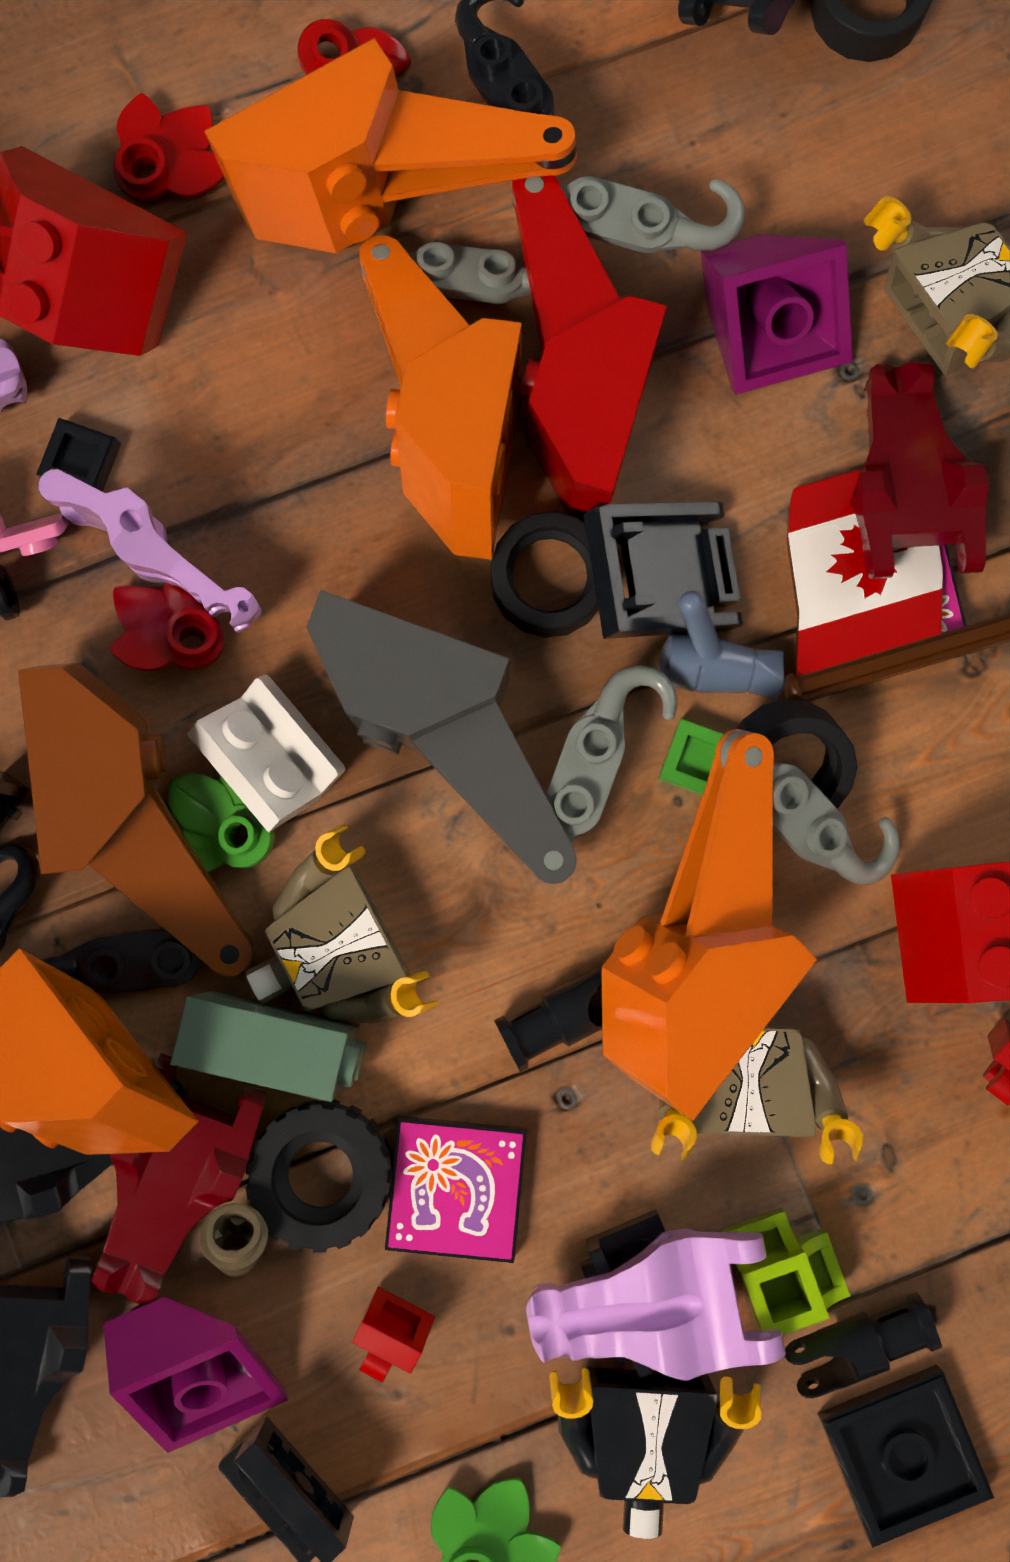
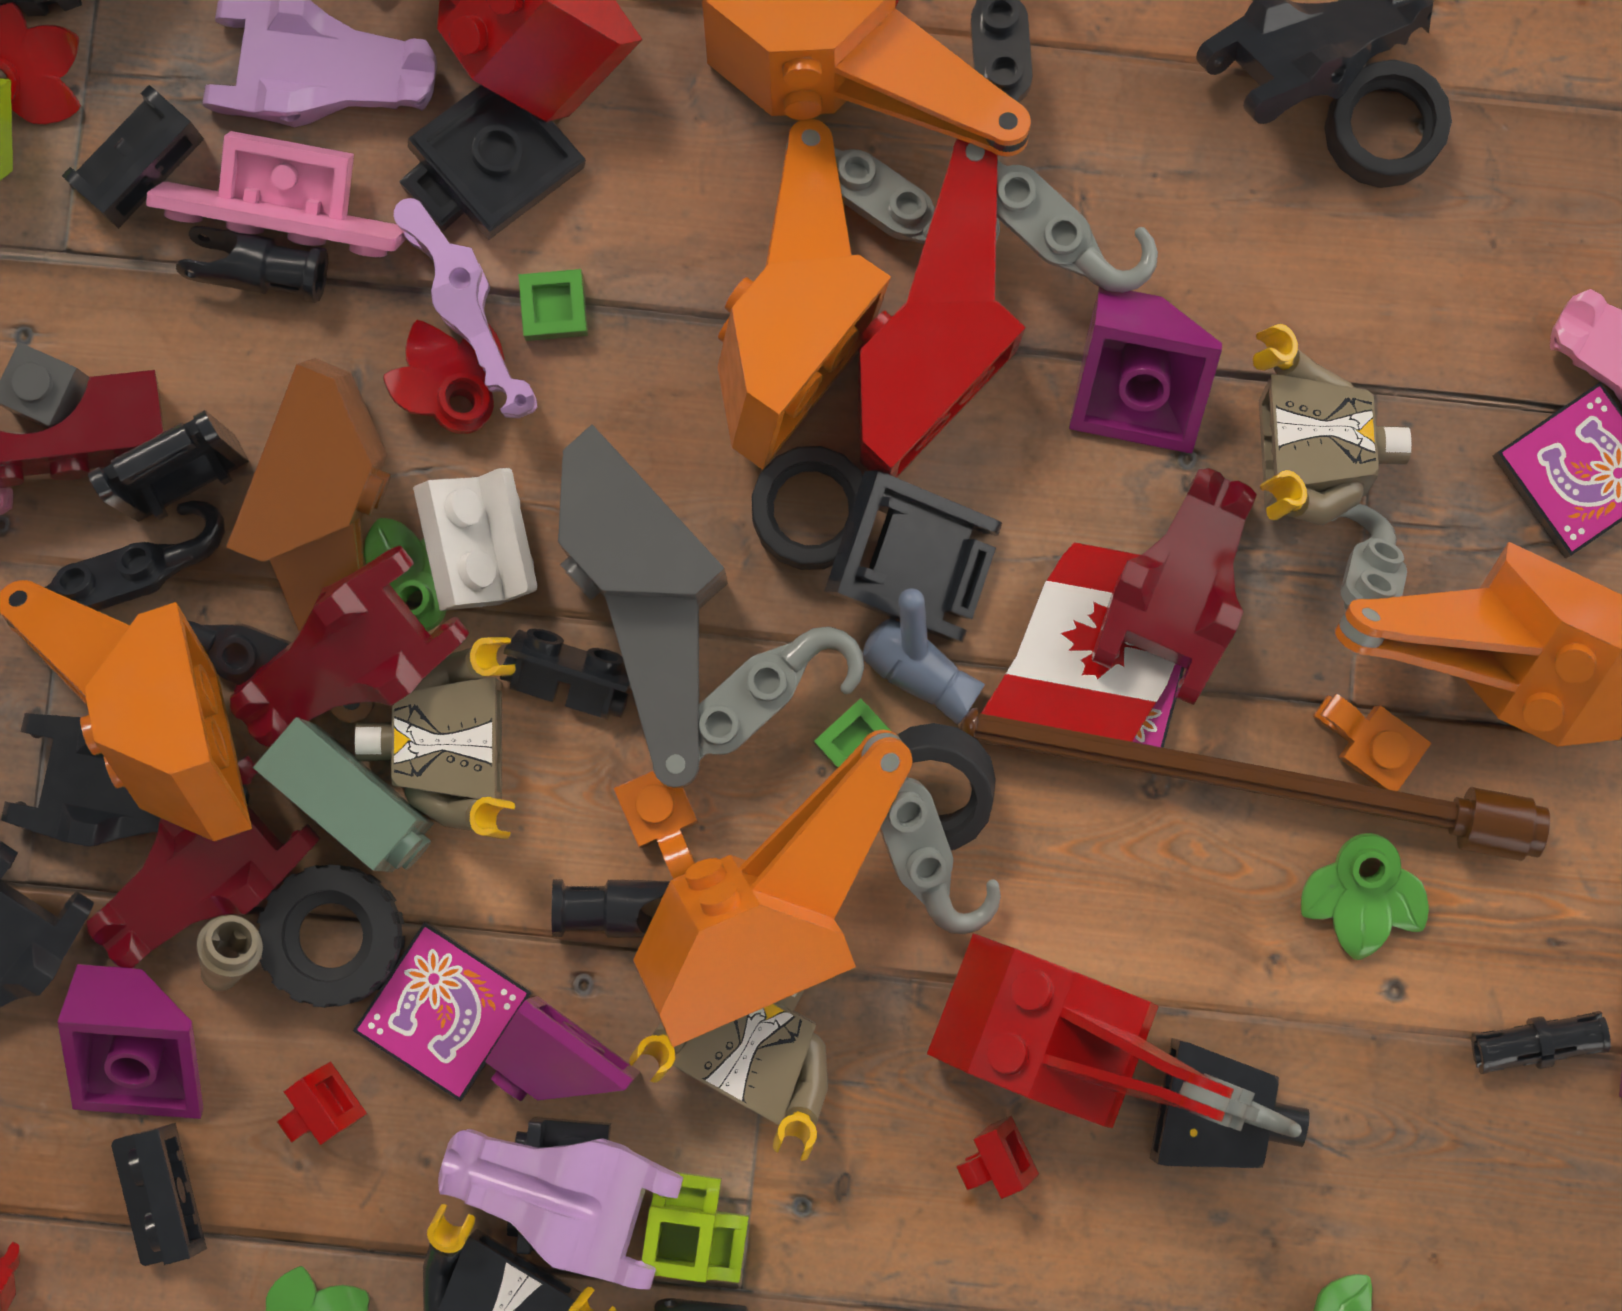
camera: 25 degrees right, 0 degrees up
(110, 409) = (495, 158): none -> black tile
(204, 909) = (350, 650): none -> dark red animal
(229, 514) = (553, 305): none -> bright green tile
(433, 820) = (595, 675): none -> black hinge
(557, 913) = (659, 815): none -> orange plate
(585, 1180) = (554, 1057): none -> magenta slope

